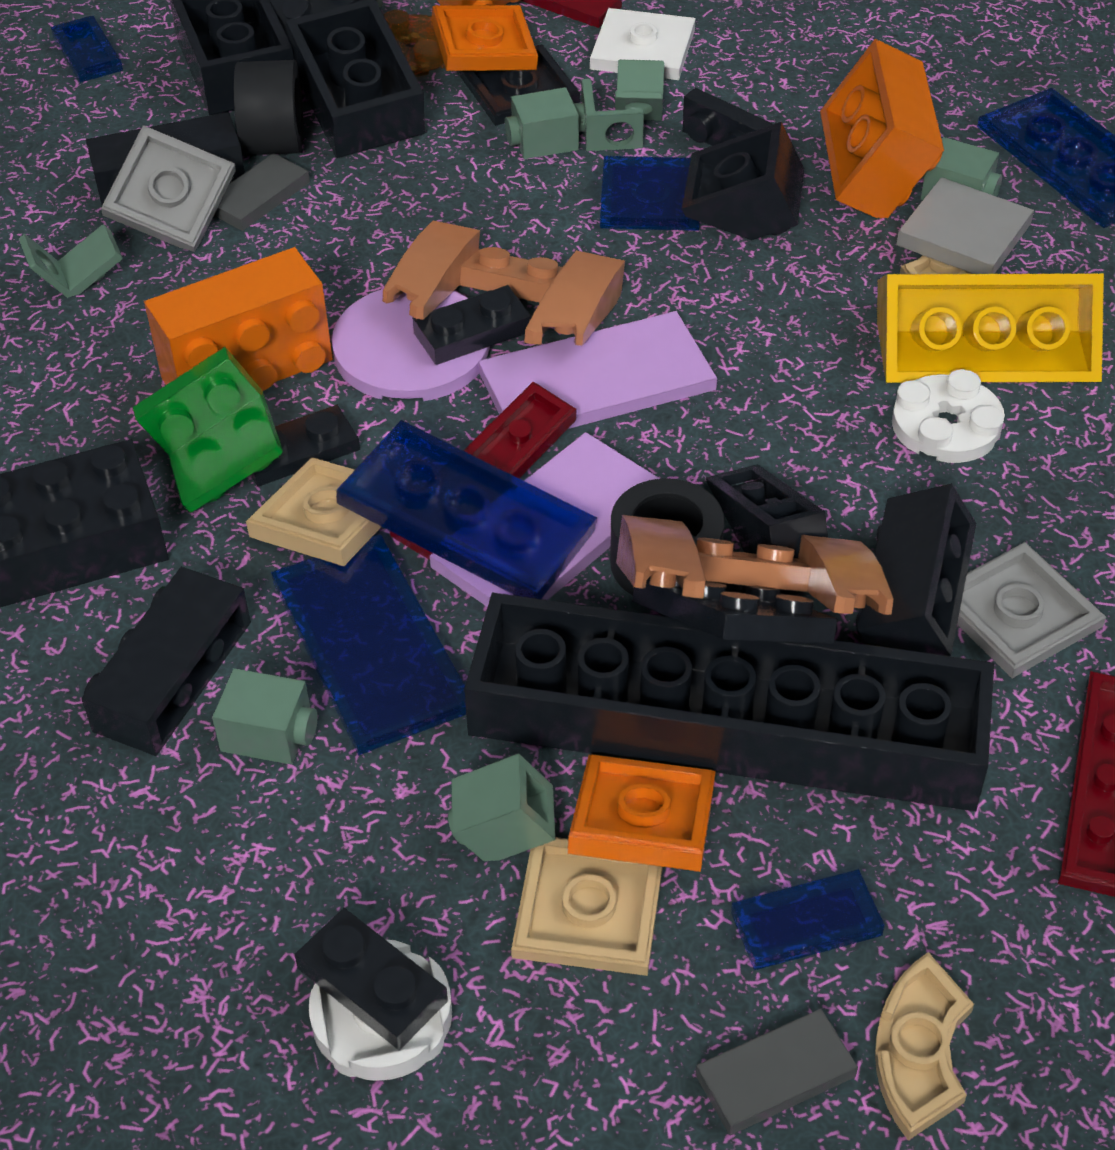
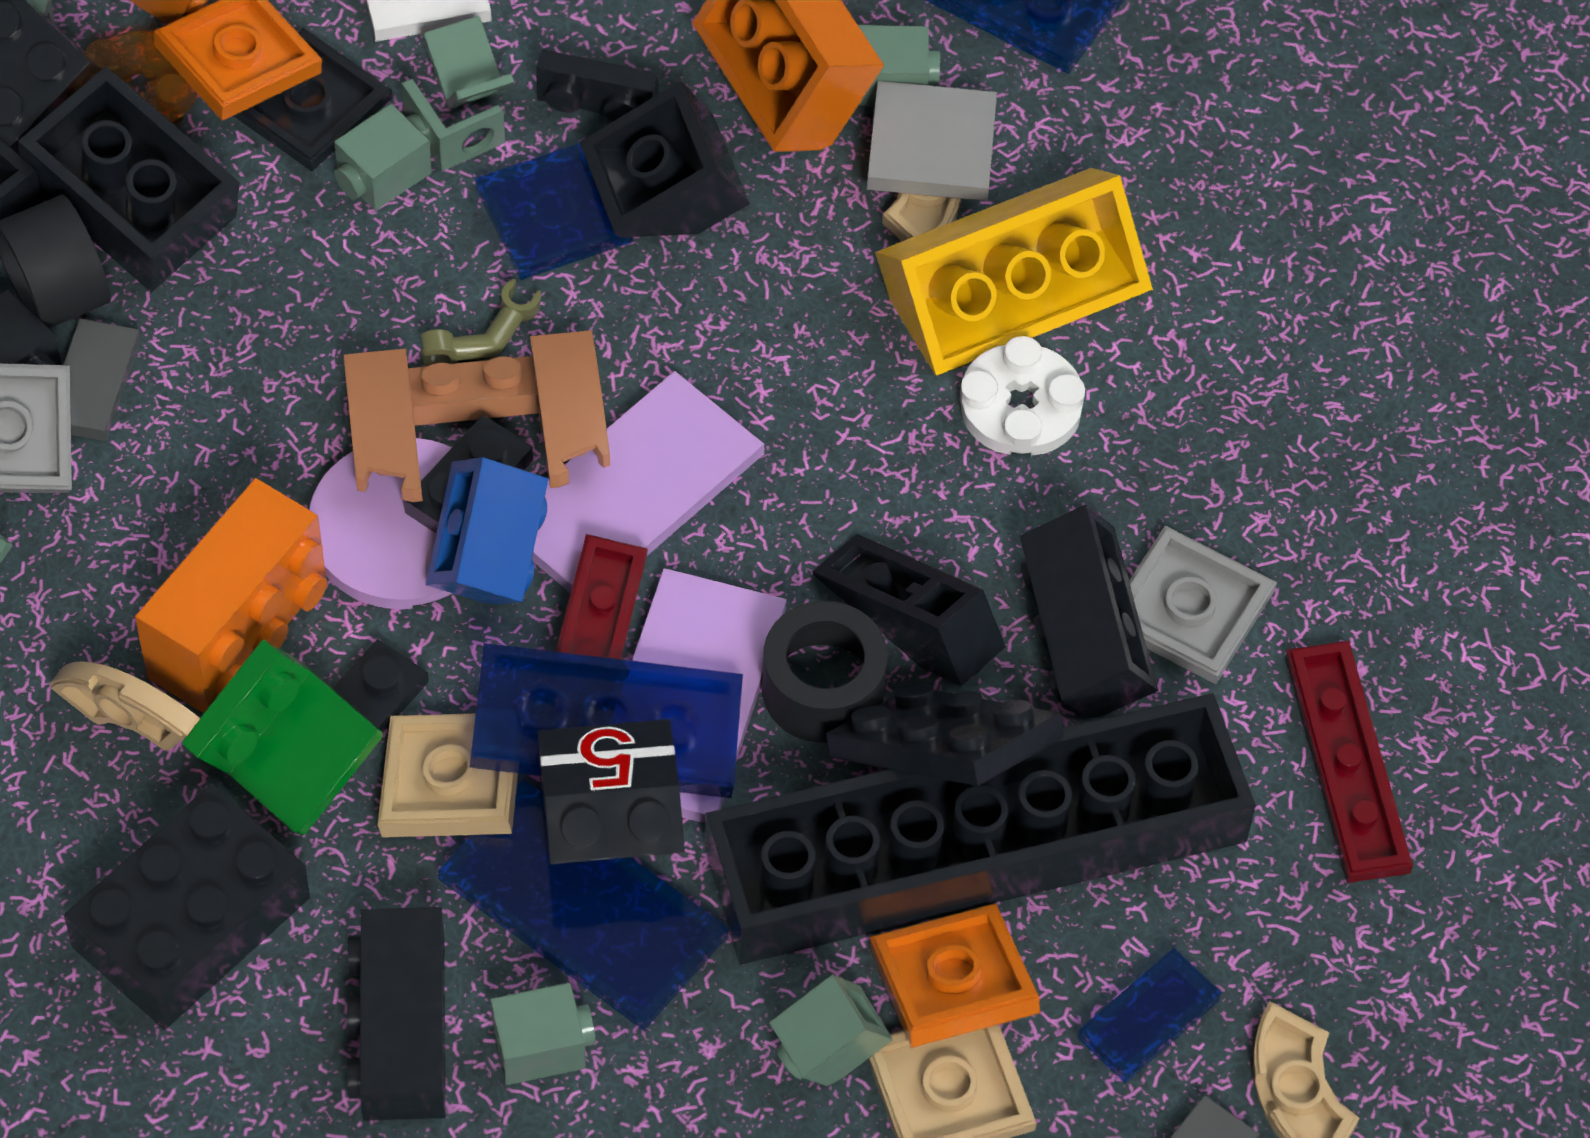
camera: 30 degrees left, 10 degrees up
(117, 372) = (124, 700): none -> tan tile
(424, 555) = (610, 791): none -> black slope
(458, 353) = (488, 531): none -> blue brick
(559, 251) = (443, 347): none -> olive arm
(830, 569) = (883, 713): nougat wedge -> none

